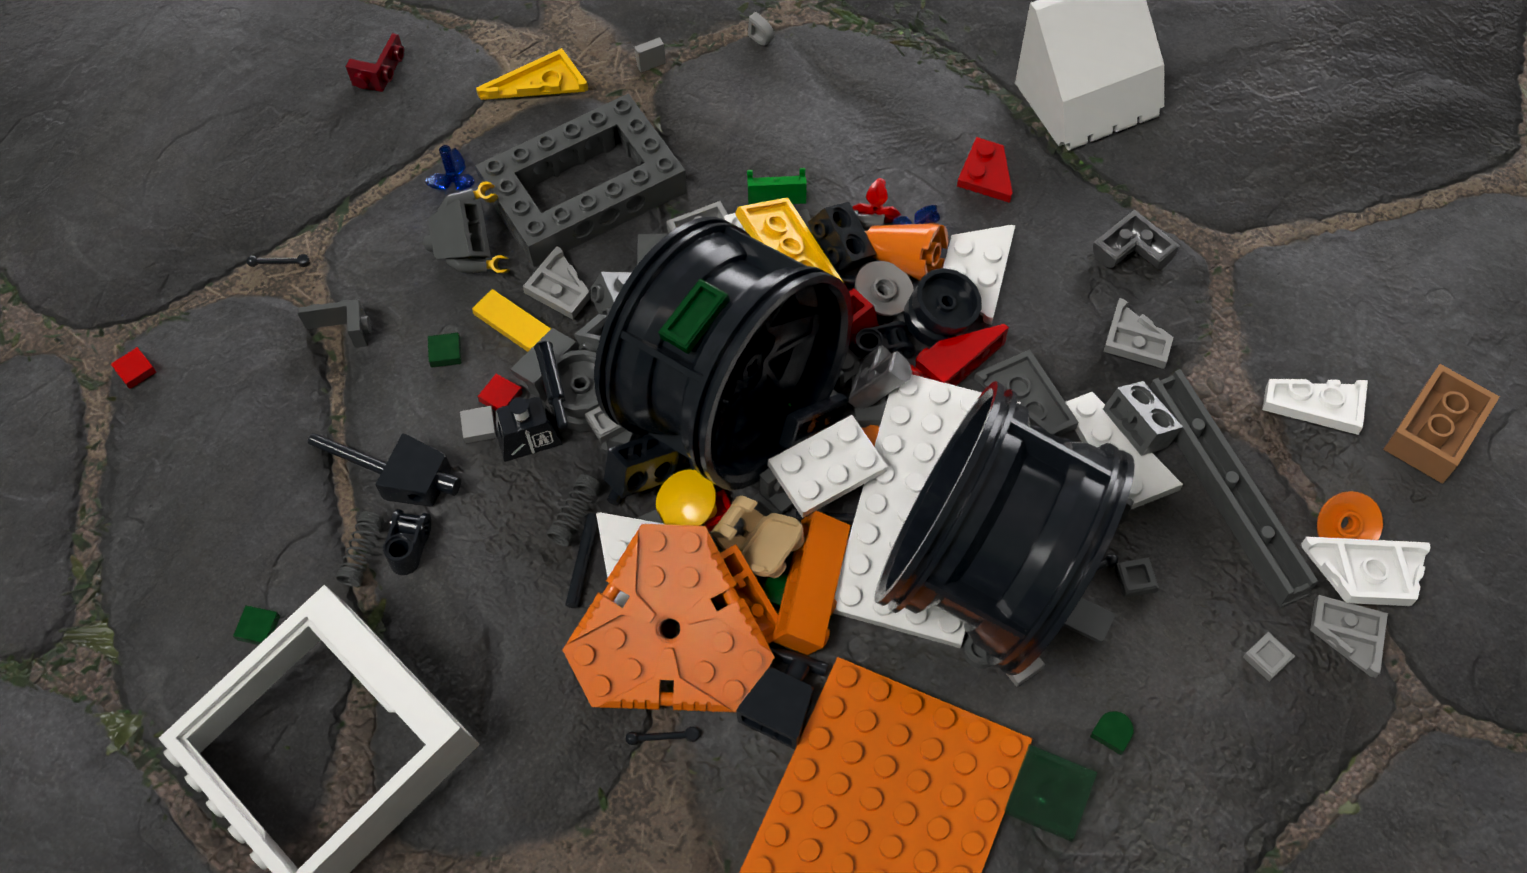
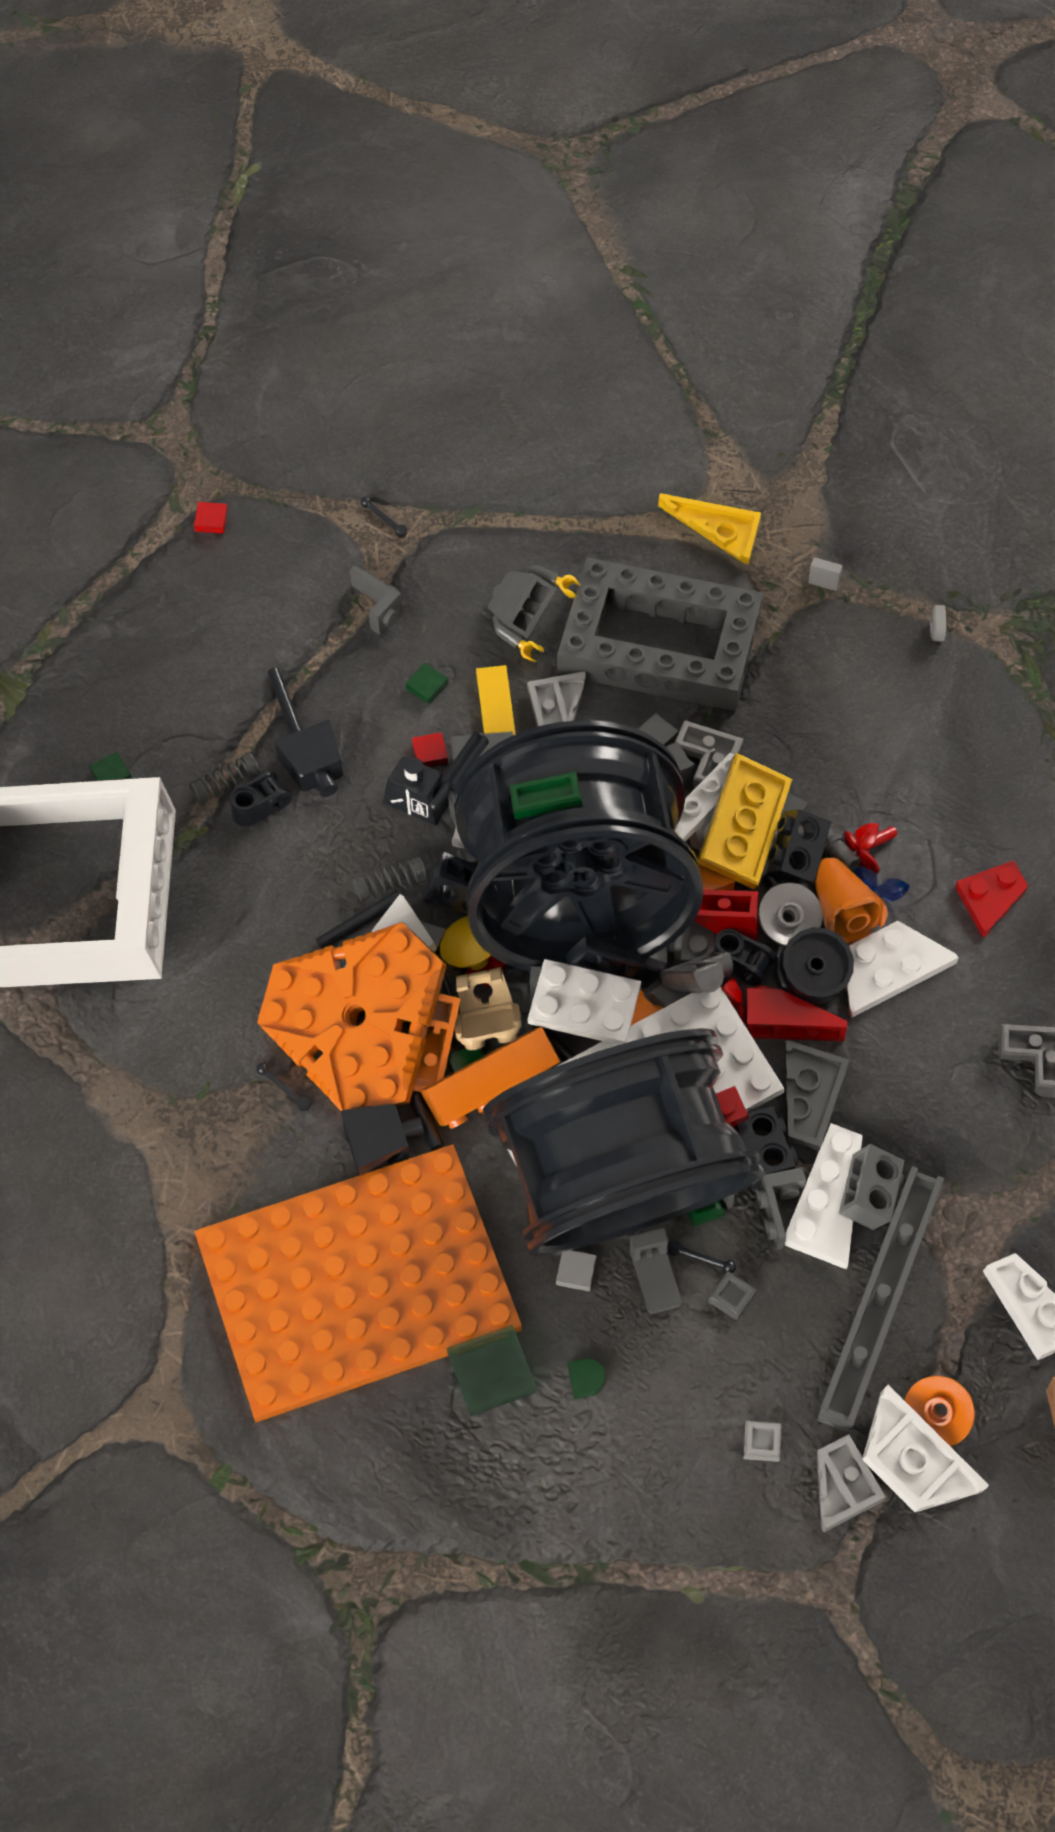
camera: 45 degrees right, 0 degrees up
(376, 76) = (606, 423): dark red bracket -> none
(453, 165) = (575, 546): clear blue plant -> none
(478, 424) = (389, 756): light grey tile -> none
(775, 188) = (802, 766): green hinge -> none
(1137, 338) = (949, 1127): light grey wing -> none

